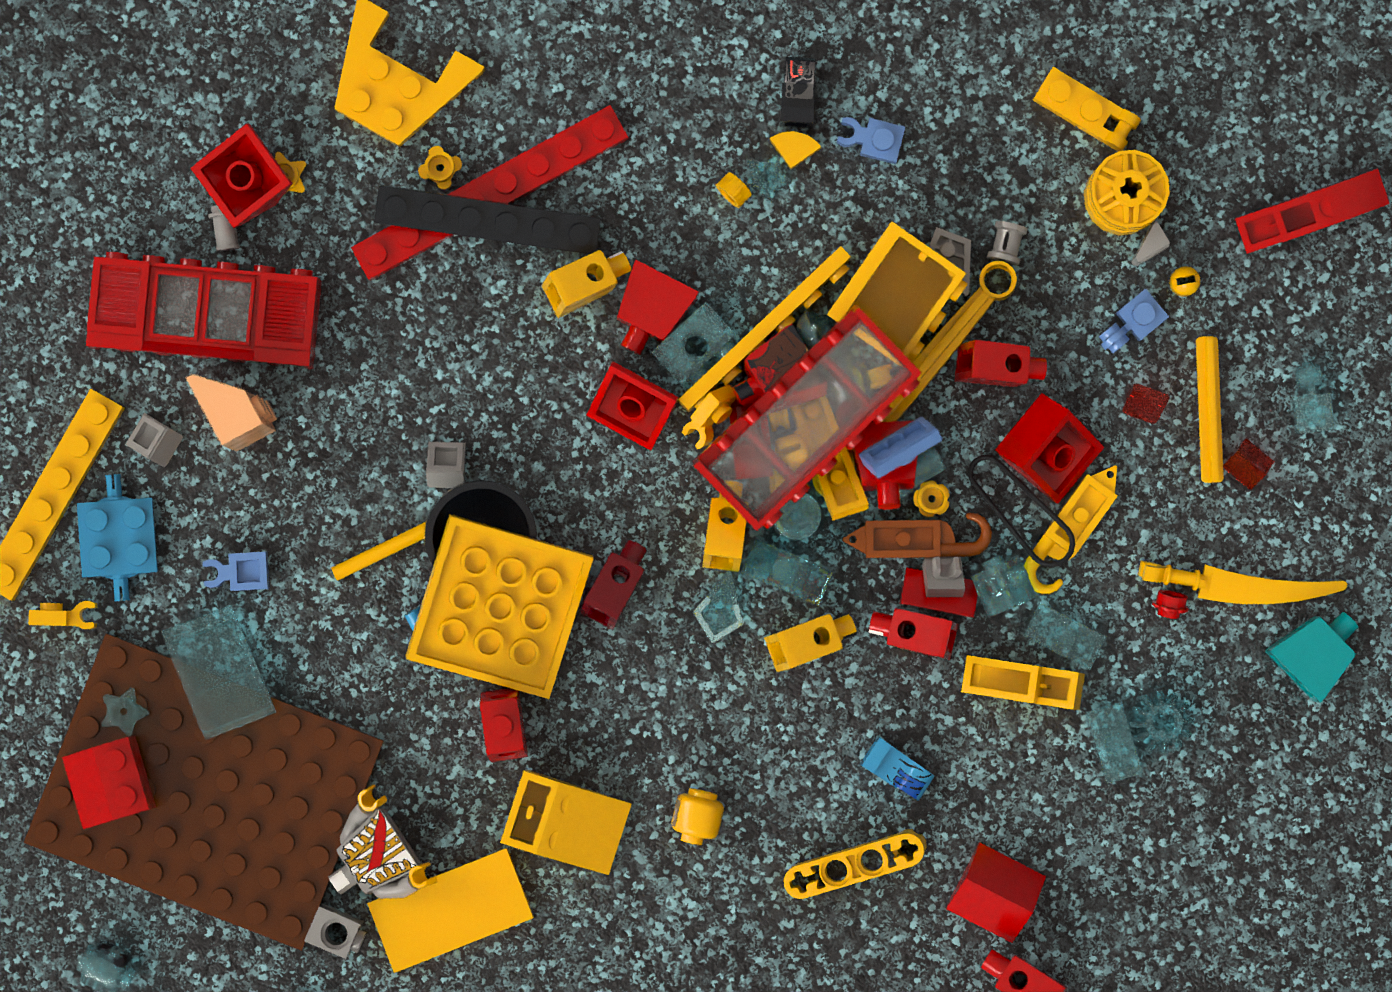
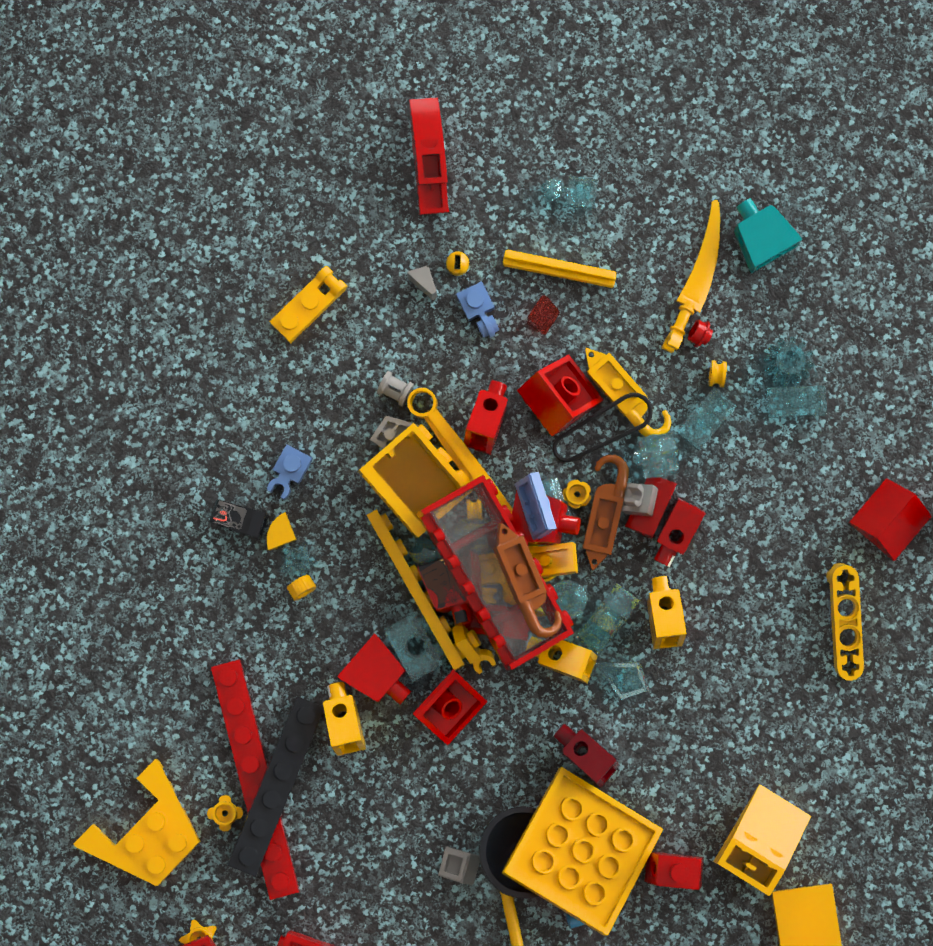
camera: 70 degrees left, 5 degrees down
(697, 816) = (781, 734): yellow head -> none
(805, 453) = (523, 579): none -> dark orange plate
(897, 769) = (778, 571): dark azure leg -> none
(1023, 682) = (734, 459): yellow slope -> none
(1116, 211) = (396, 293): yellow wheel -> none
(1124, 637) = (717, 373): none -> yellow bush
(1248, 464) = (608, 250): clear red slope -> none

